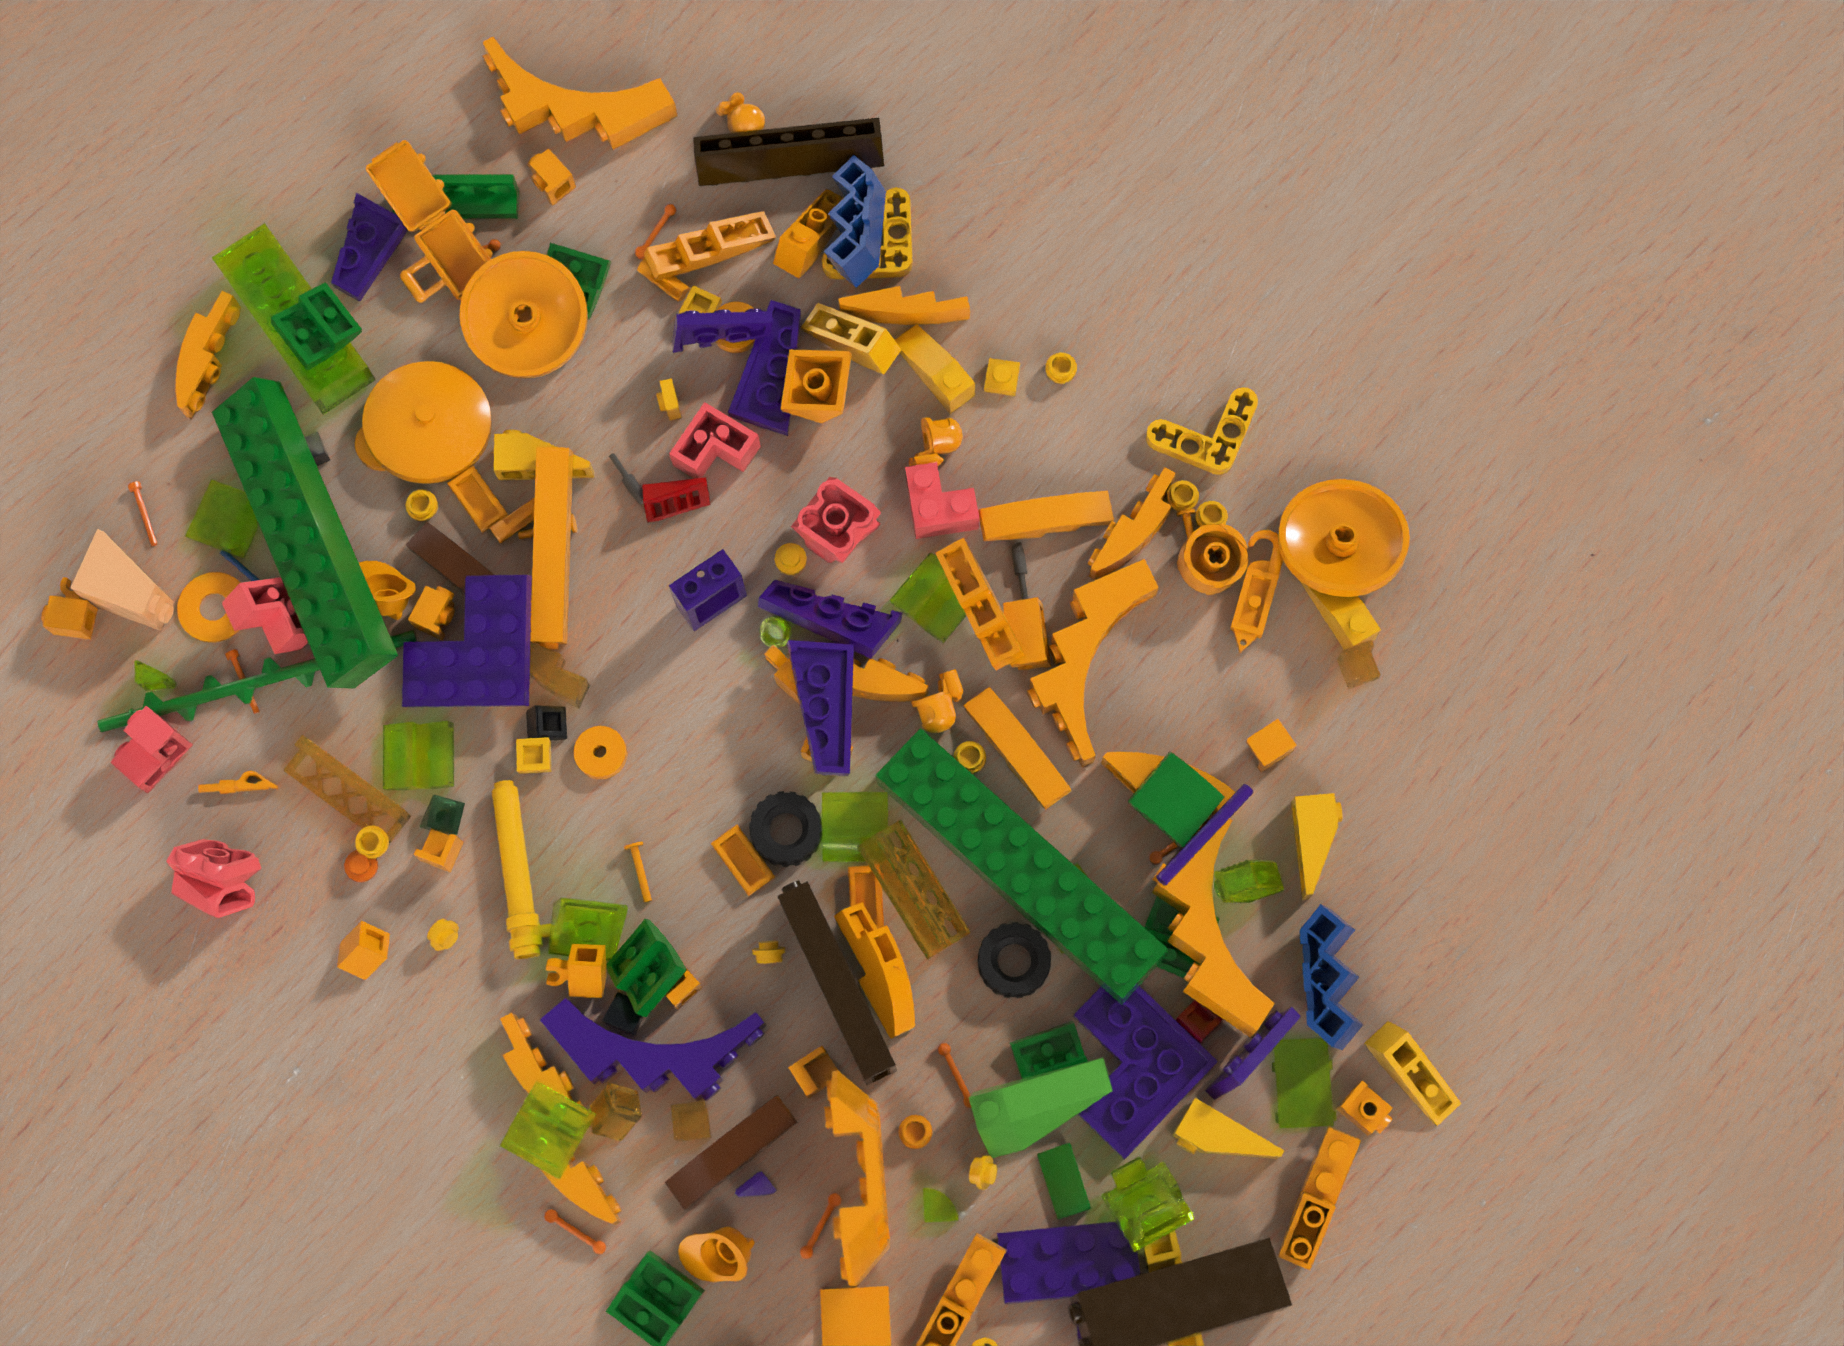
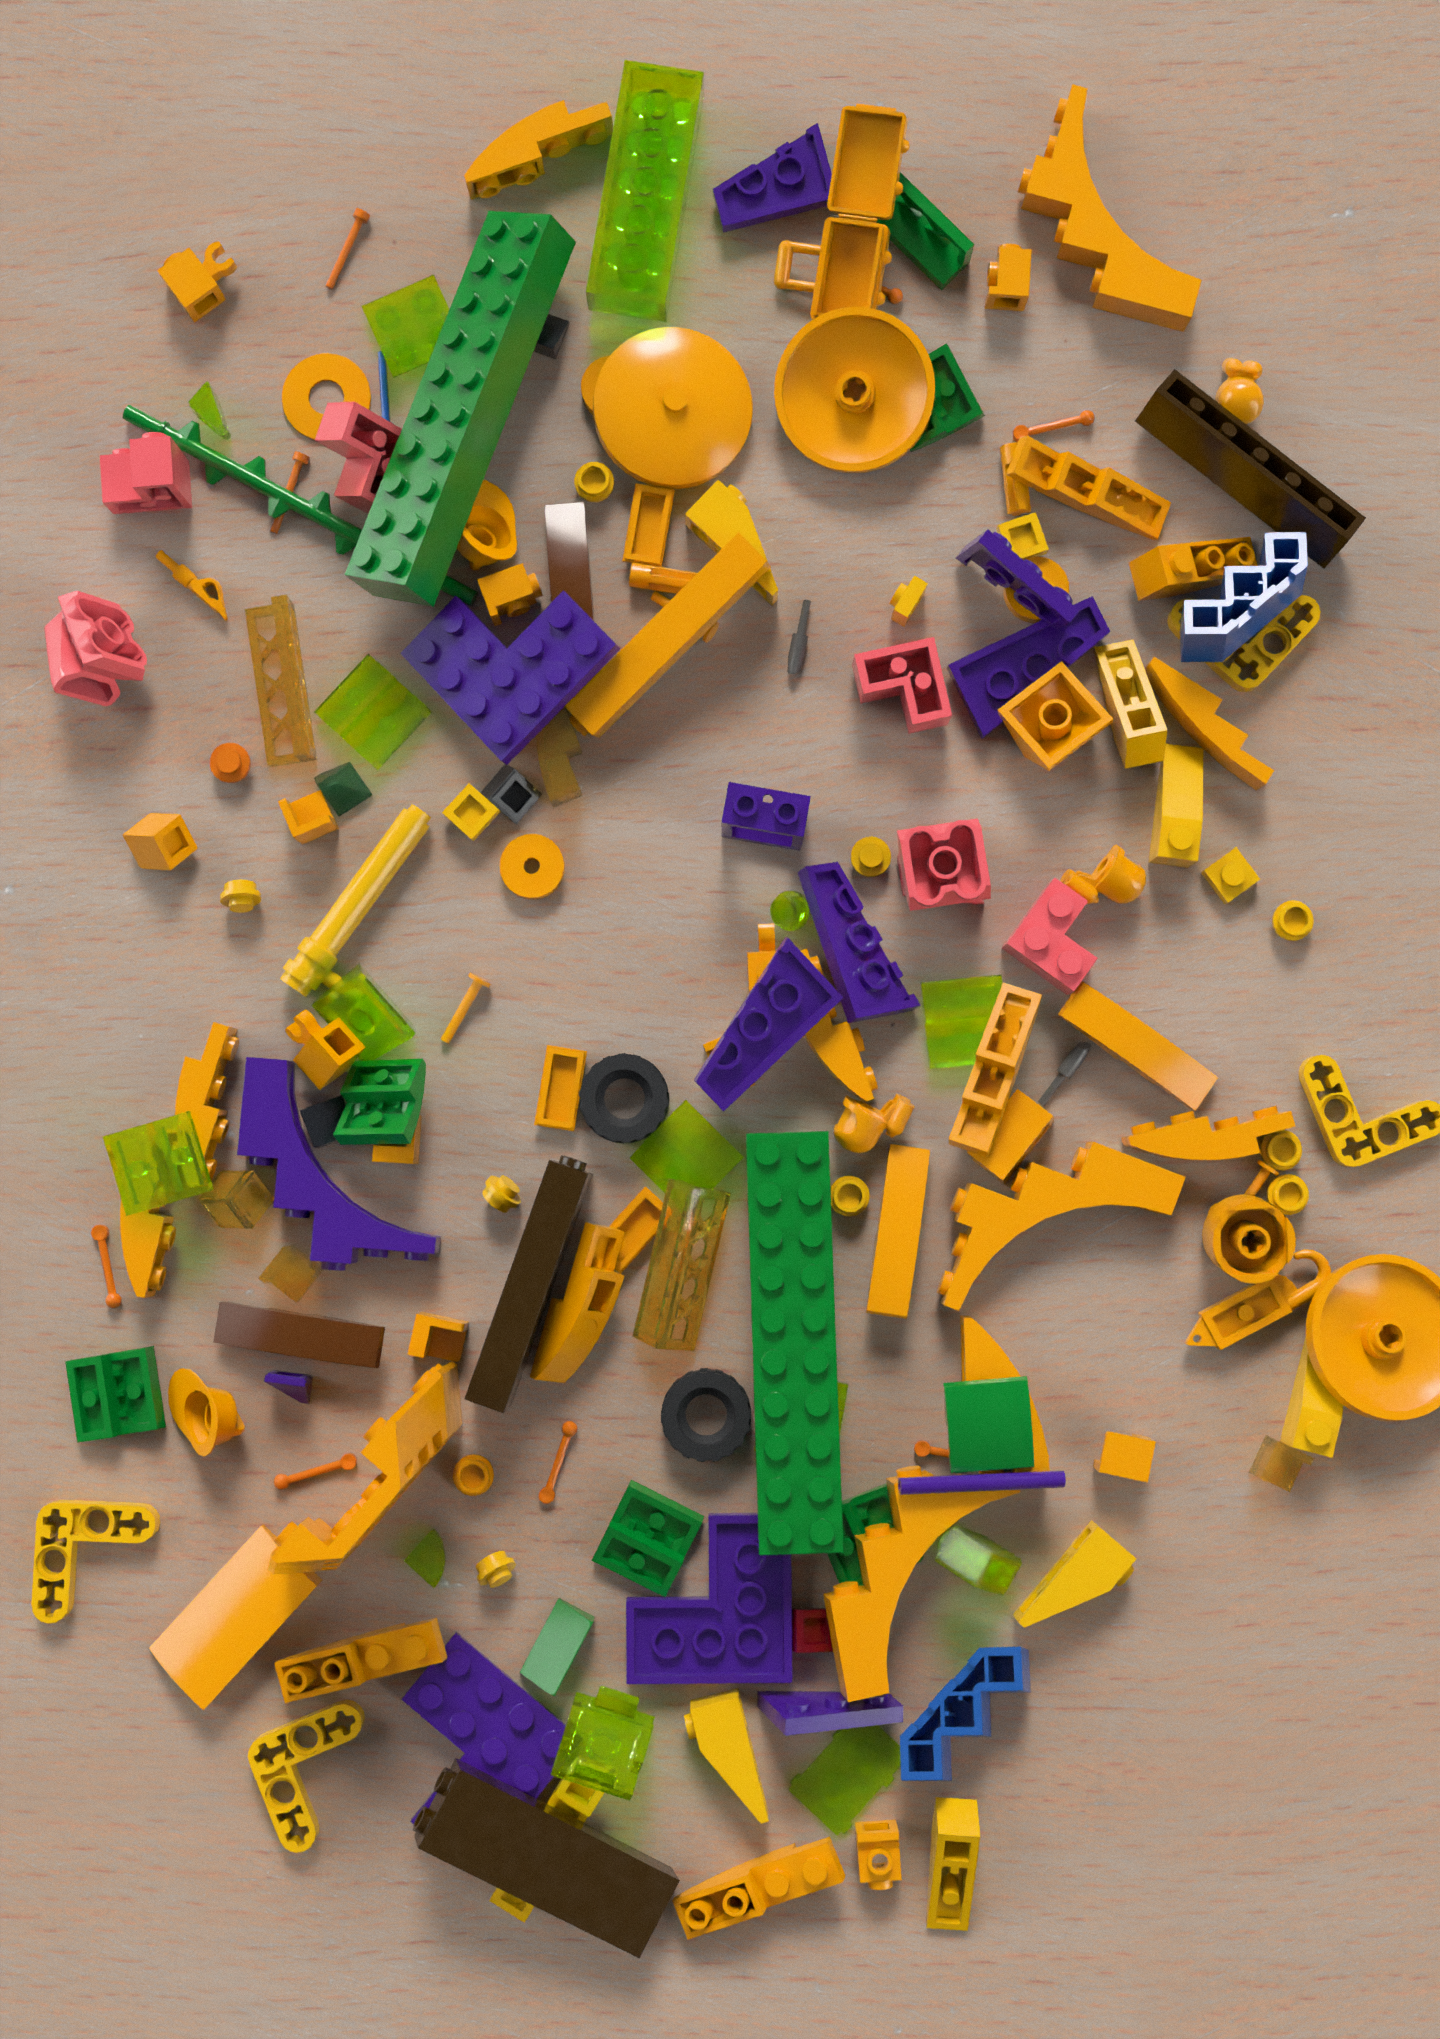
camera: 45 degrees right, 10 degrees up
(119, 585) = (262, 297): light nougat slope -> none
(316, 326) = (654, 219): green slope -> none
(372, 842) = (257, 751): yellow plate -> none
(658, 497) = (821, 697): red slope -> none
(1028, 1109) = (590, 1558): bright green wedge -> none

